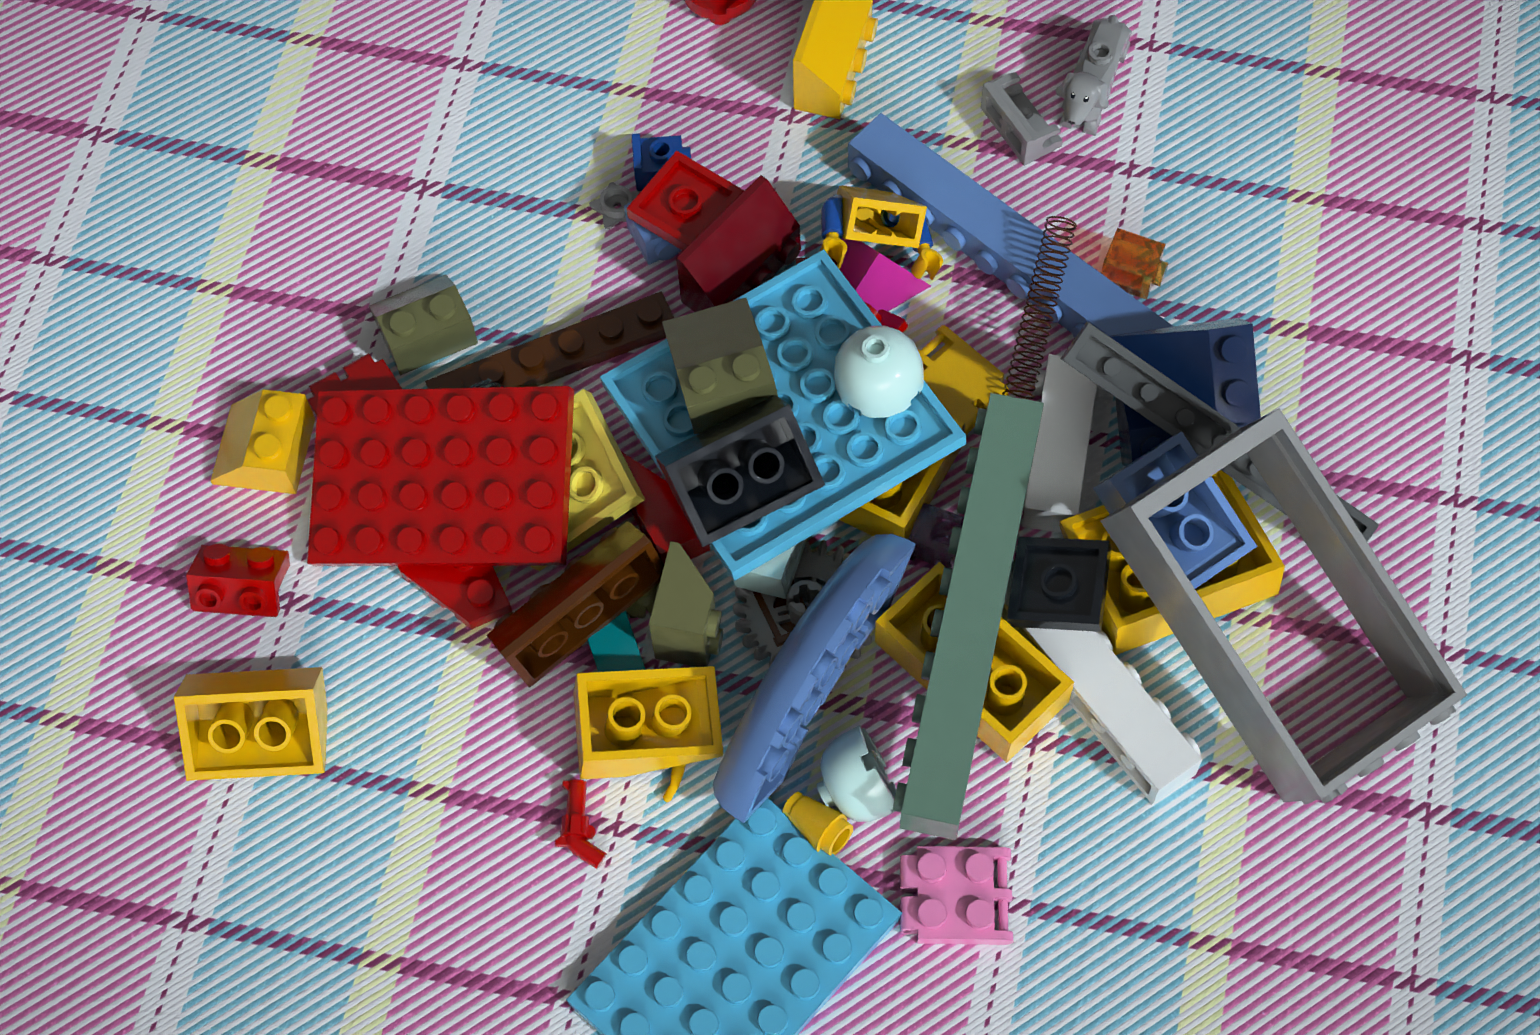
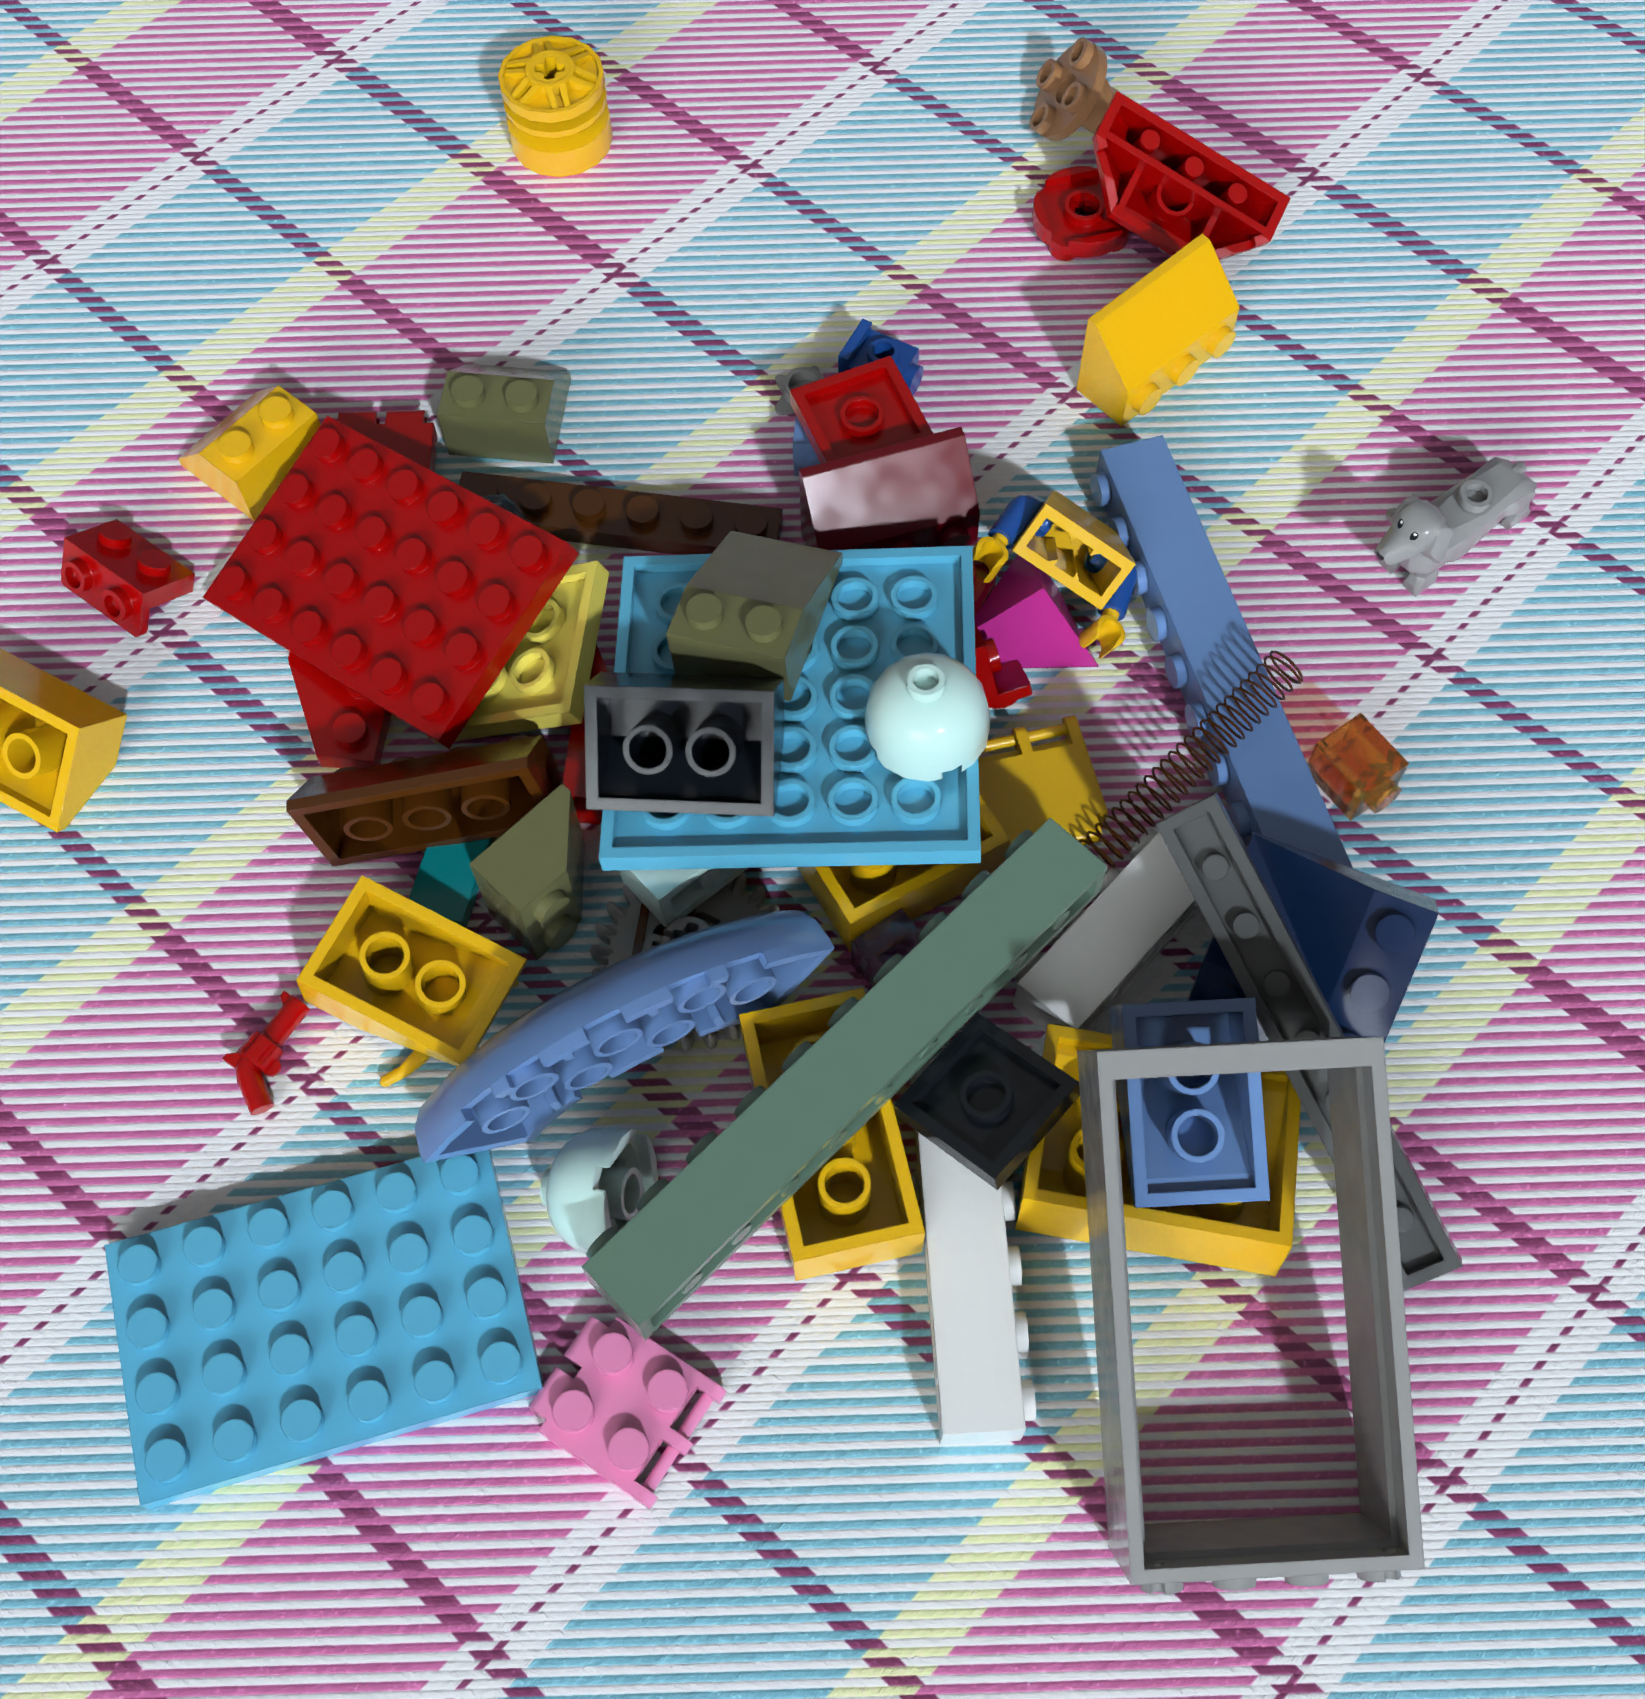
camera: 30 degrees right, 0 degrees up
(305, 90) = (556, 105): none -> yellow wheel
(818, 823) = (521, 1217): yellow cone -> none
(1018, 119) = (1331, 528): light grey hinge -> none

